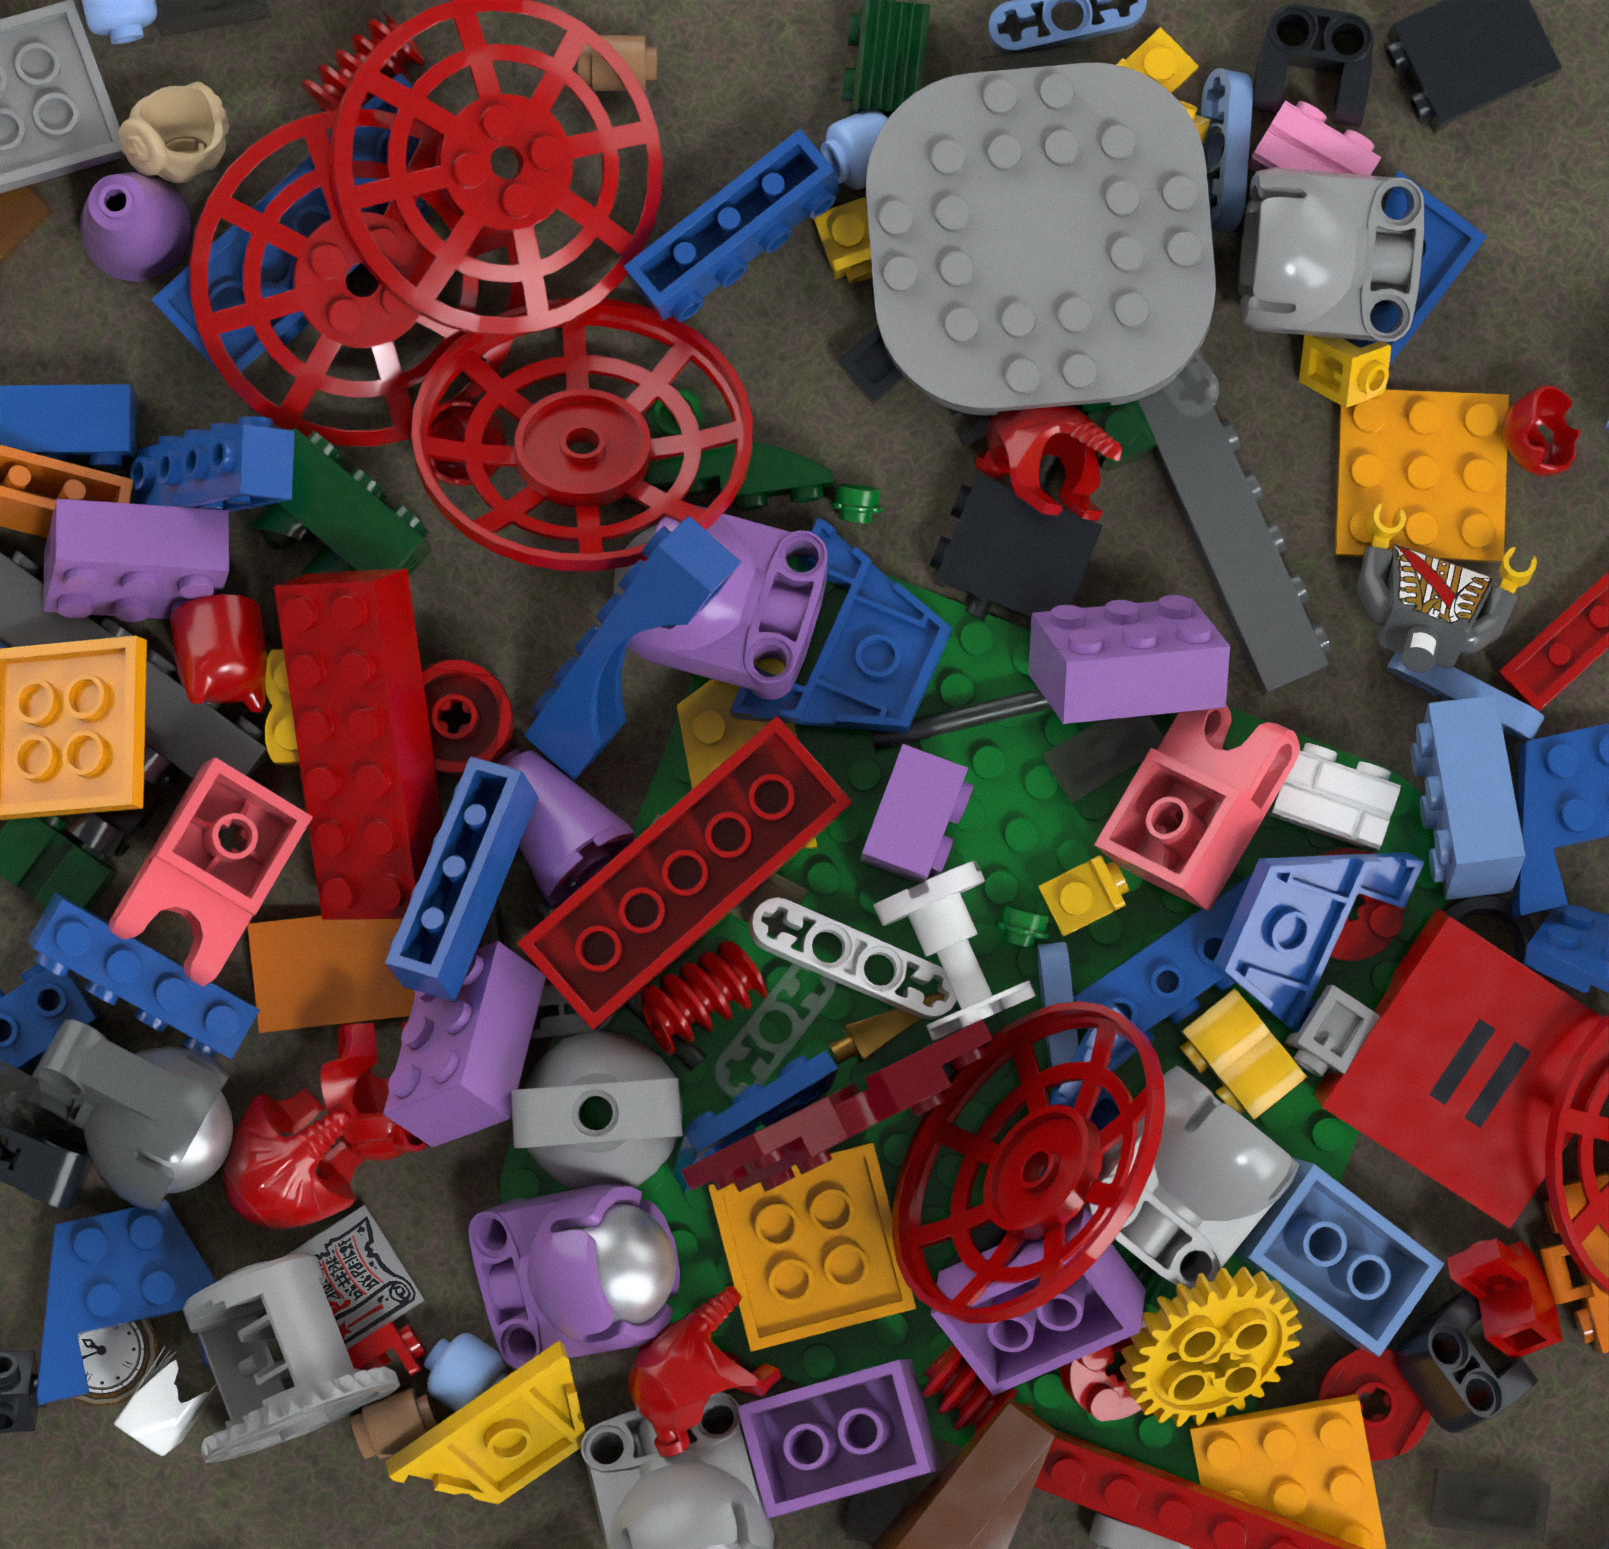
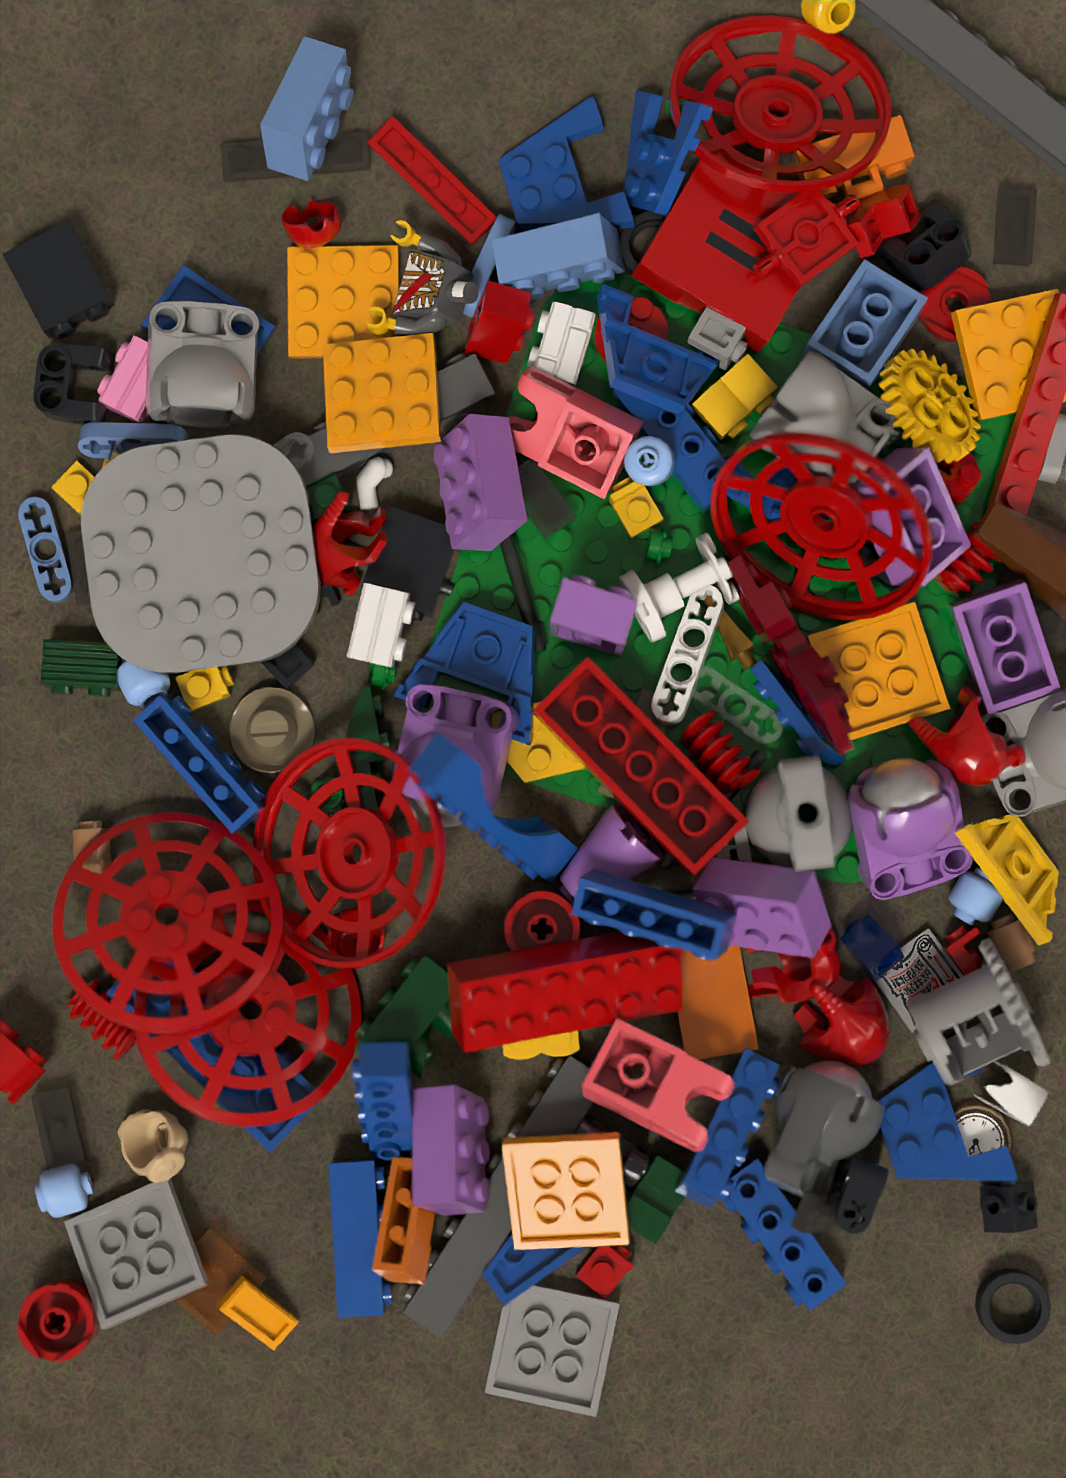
camera: 90 degrees left, 0 degrees up
(134, 226) = (227, 1160): medium lavender cone -> none
(221, 650) = (506, 1089): red piece -> none
(400, 1210) = (871, 946): none -> clear blue brick
(779, 335) = (271, 729): none -> dark tan hat
(921, 500) = (380, 624): none -> white brick
(1056, 988) = (701, 522): medium blue beam -> none
(1146, 933) = (662, 465): none -> light blue head
(1150, 500) = (369, 478): none -> white arm
(1274, 521) = (381, 393): none -> light orange plate
(1344, 370) = (277, 353): yellow bracket -> none
(1372, 703) = (499, 322): none -> red brick
(1480, 1174) = (806, 236): none -> red plate

